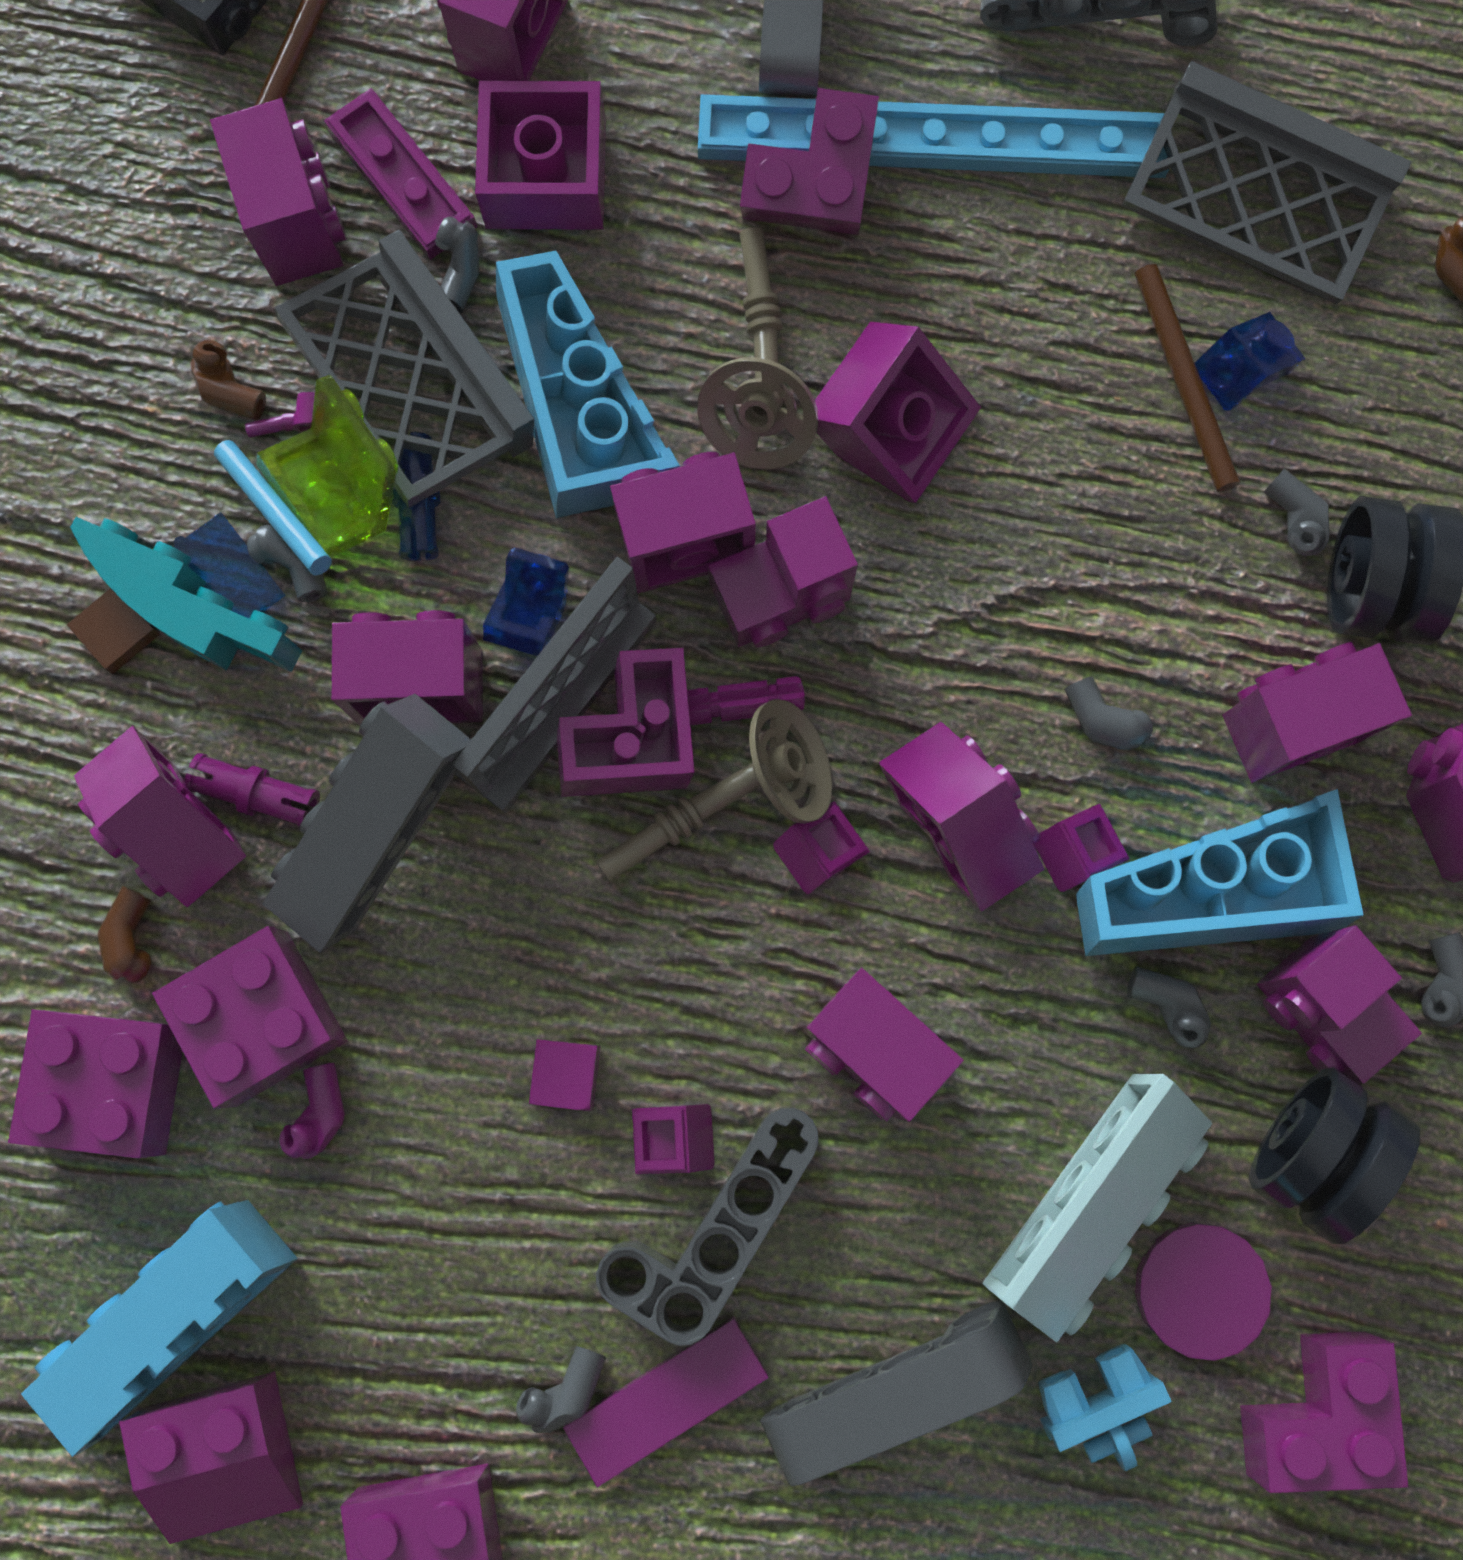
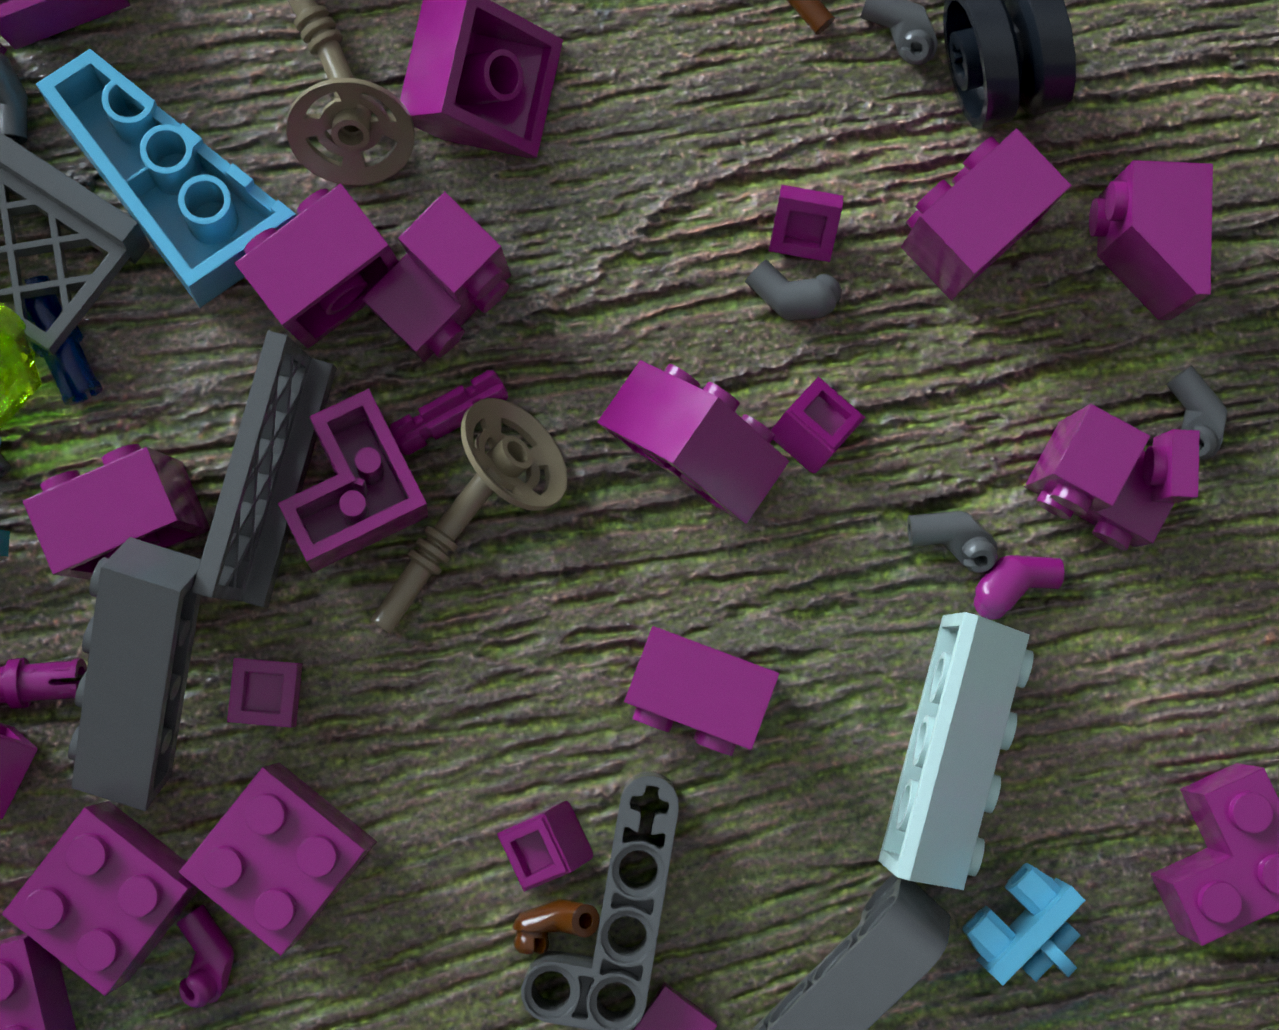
camera: 20 degrees left, 5 degrees up
(422, 1046) = (277, 857): none -> magenta brick
(472, 889) = (264, 692): none -> magenta plate
(528, 602) = (205, 400): clear blue bracket -> none
(564, 1075) = (422, 828): magenta slope -> none
(657, 1209) = (557, 916): none -> reddish brown arm
(820, 848) = (576, 522): magenta slope -> none
(1143, 657) = (806, 223): none -> magenta plate
(1203, 1291) = (1079, 786): magenta tile -> none
(1213, 1064) = (1011, 579): none -> magenta arm
(1238, 884) = (974, 402): medium azure wedge -> none
(1335, 1156) = (1150, 620): black wheel -> none
(1412, 1017) = (1173, 466): none -> magenta plate

